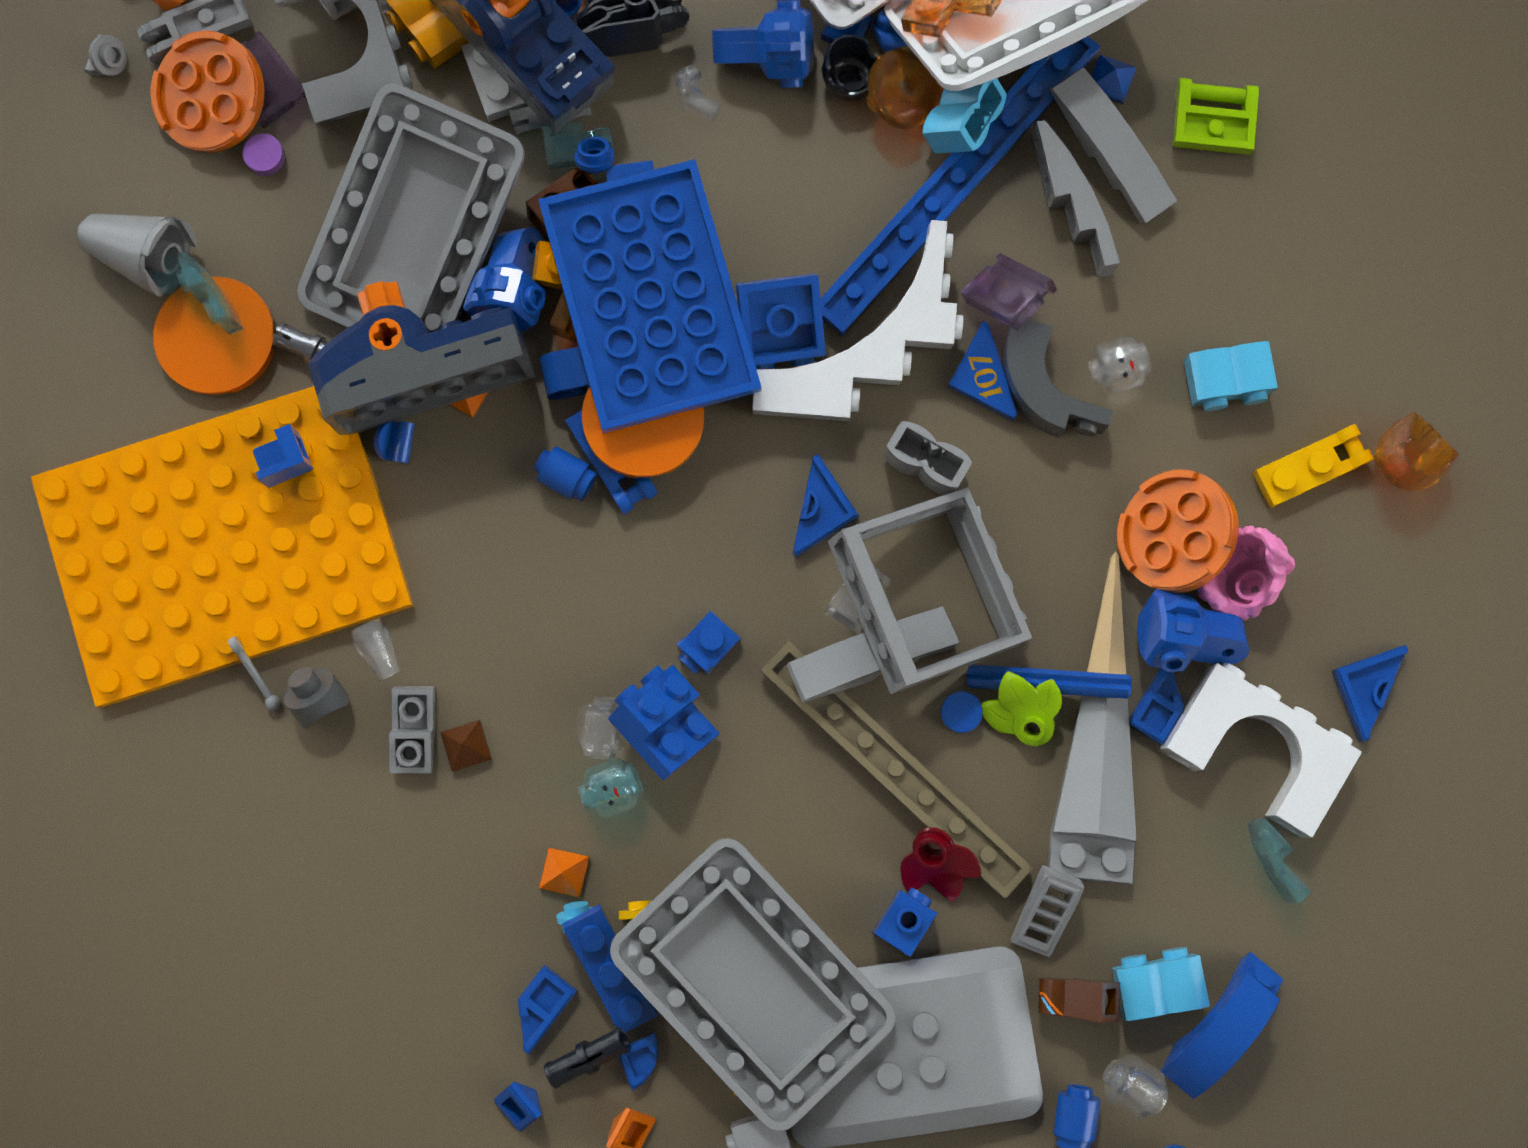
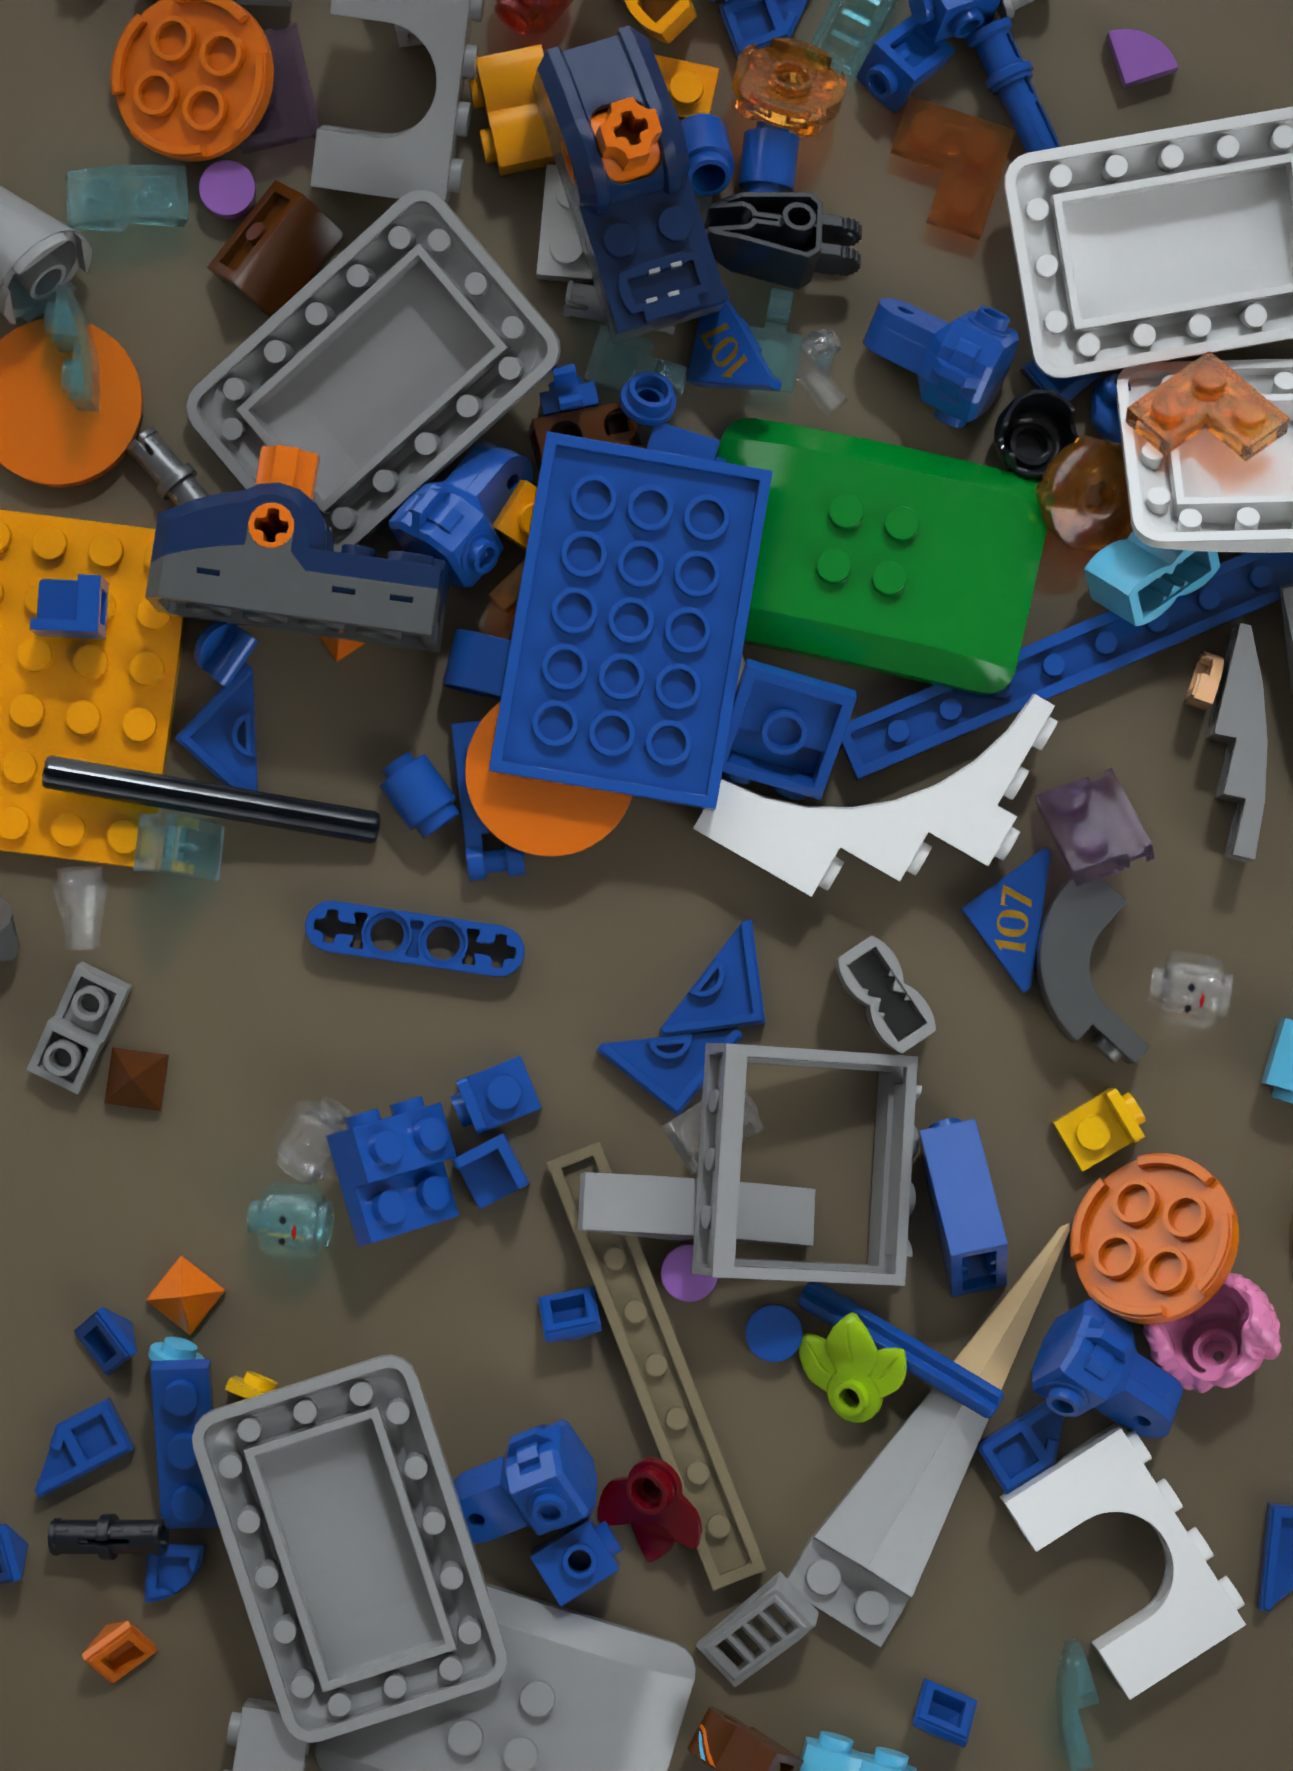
camera: 20 degrees right, 5 degrees up
(193, 188) = (125, 195): none -> clear light blue slope
(311, 174) = (276, 248): none -> reddish brown panel
(422, 498) = (225, 733): none -> blue tile
(423, 578) = (179, 846): none -> clear light blue slope
(429, 539) = (210, 799): none -> black axle
(525, 925) = (107, 1339): none -> blue slope
(540, 174) = (567, 392): none -> blue plate
(608, 575) = (416, 932): none -> blue beam
(632, 109) = (728, 354): none -> blue tile
(658, 96) = (779, 347): none -> clear light blue plate
(727, 693) = (492, 1170): none -> blue panel
(798, 185) = (890, 556): none -> green wedge
(807, 574) = (667, 1066): none -> blue tile
(823, 763) = (570, 1315): none -> blue slope
(855, 882) = (538, 1483): none -> blue piece
(886, 705) = (678, 1276): none -> medium lavender tile
(1032, 173) = (1205, 680): none -> light nougat tile
(1045, 571) = (964, 1207): none -> blue slope
(1106, 480) = (1100, 1127): none -> yellow bracket
(1194, 908) = (944, 1713): none -> blue slope

